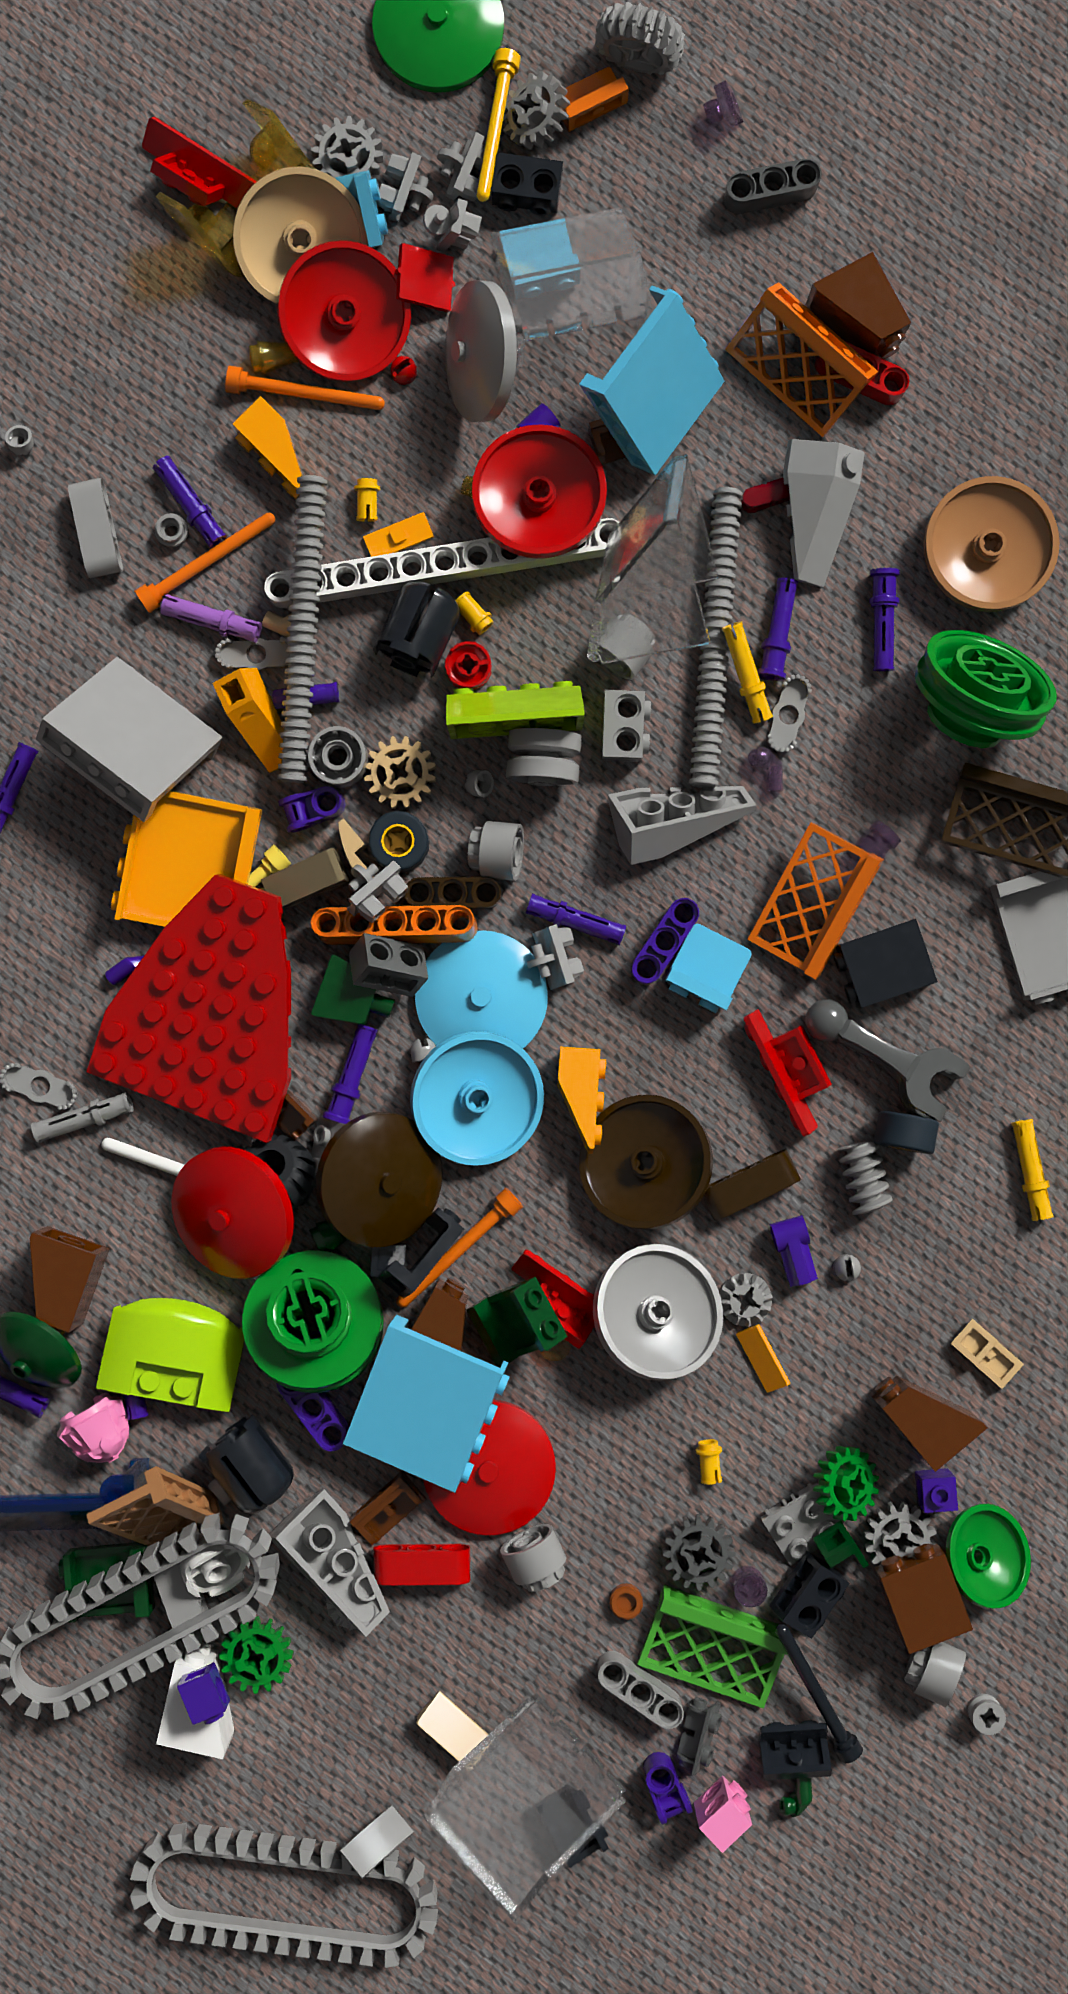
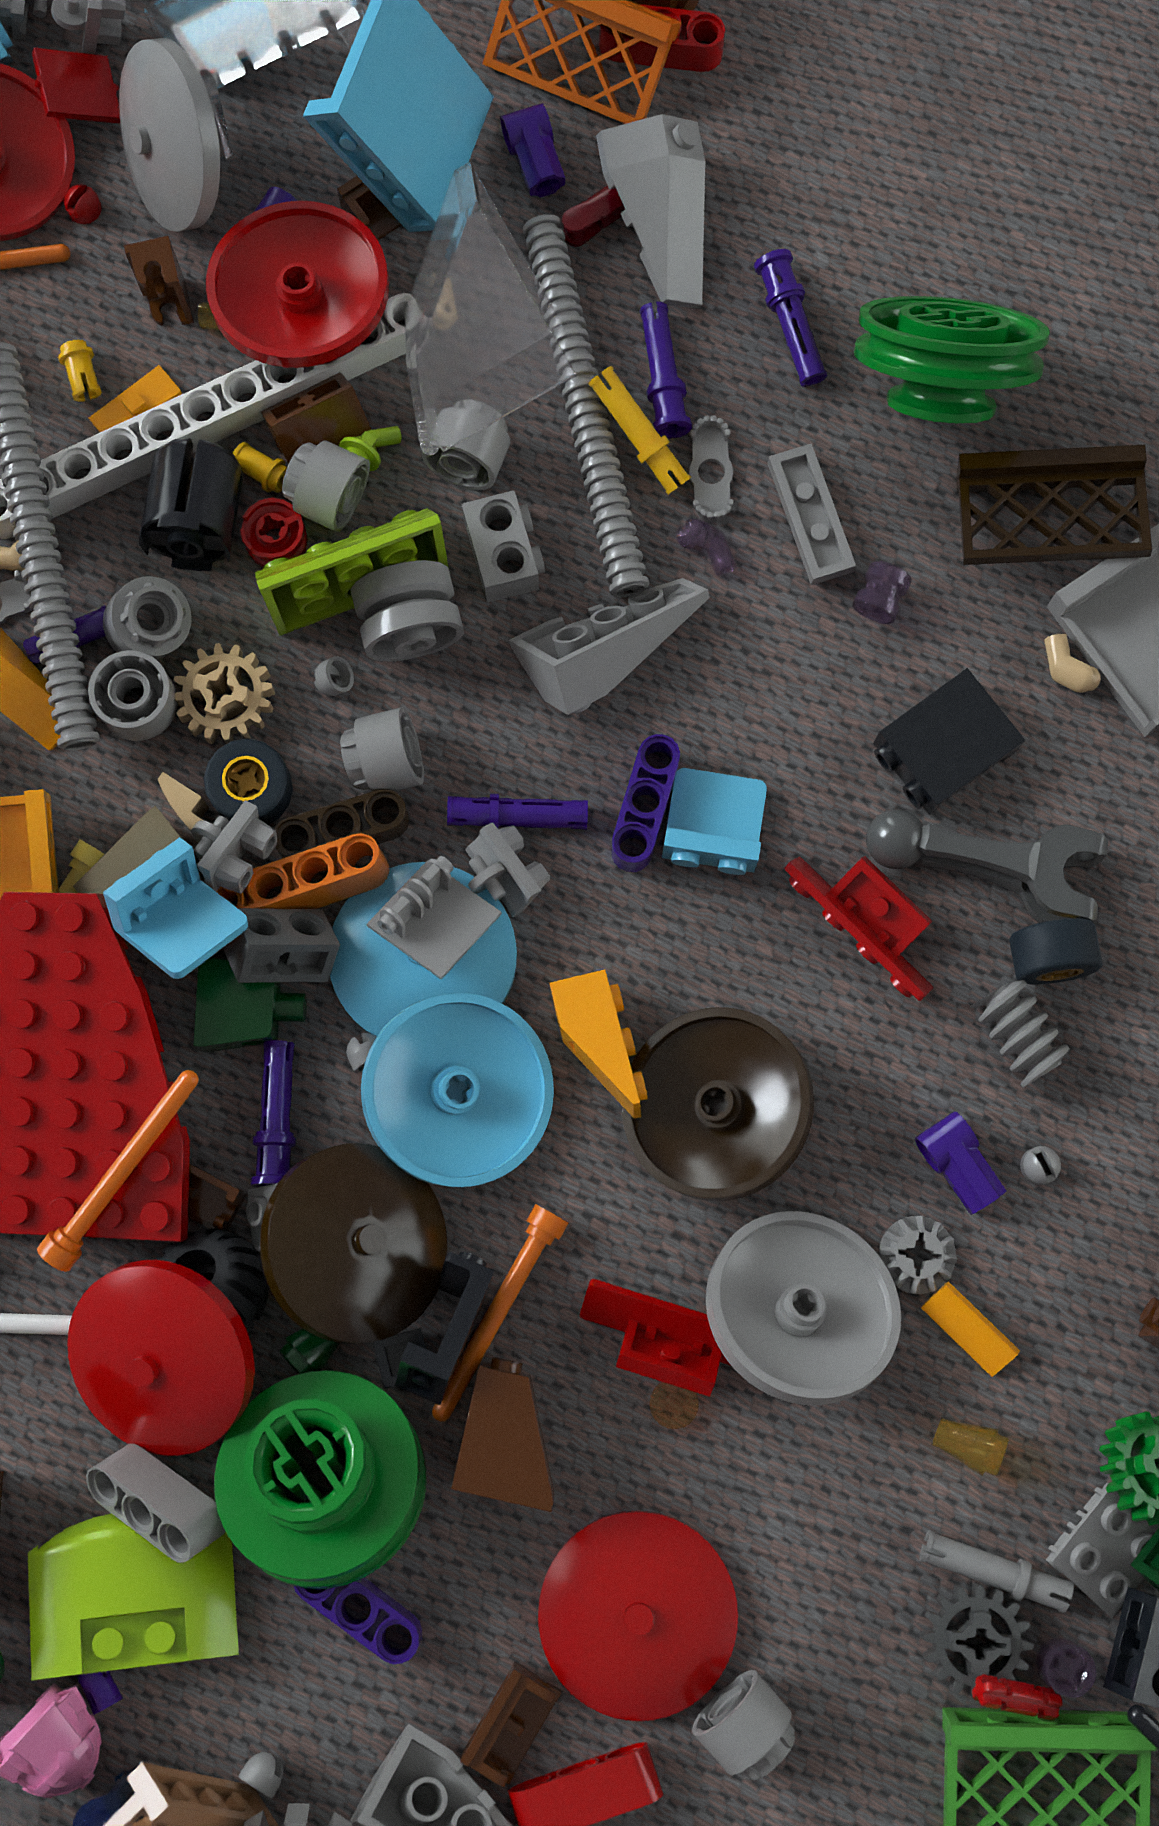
camera: 20 degrees left, 10 degrees down
(189, 1121) = (63, 1246): none -> orange piece
(203, 1302) = (155, 1502): none -> light grey beam
(248, 1466) = (289, 1726): black cylinder -> none
(309, 808) = (114, 776): dark purple piece -> none
(324, 927) = (172, 912): none -> medium azure bracket
(380, 707) = (159, 598): none -> light grey piece
(425, 1406) = (517, 1548): medium azure panel -> none
(442, 450) = (160, 277): none -> reddish brown hinge
(496, 979) = (434, 918): none -> light grey hinge
(514, 643) = (325, 483): none -> light grey piece
(516, 1321) = (610, 1385): dark green panel -> none
(522, 591) = (316, 414): none -> reddish brown hinge
(547, 624) = (368, 442): none -> lime plate
(626, 1601) = (897, 1750): dark orange tile -> none
(709, 1461) = (946, 1501): yellow pin -> none
(711, 1595) = (1017, 1697): none -> red axle
(737, 1522) = (1016, 1578): none -> light grey pin
(738, 1432) = (972, 1445): none -> clear yellow cone
(741, 422) = (531, 141): none -> dark purple piece
(751, 1184) = (870, 1092): dark brown beam -> none
(840, 915) = (866, 694): orange fence -> none
(847, 769) = (811, 514): none -> light grey plate
(987, 938) = (1068, 670): none -> tan arm
(991, 543) = (895, 185): medium nougat dish -> none

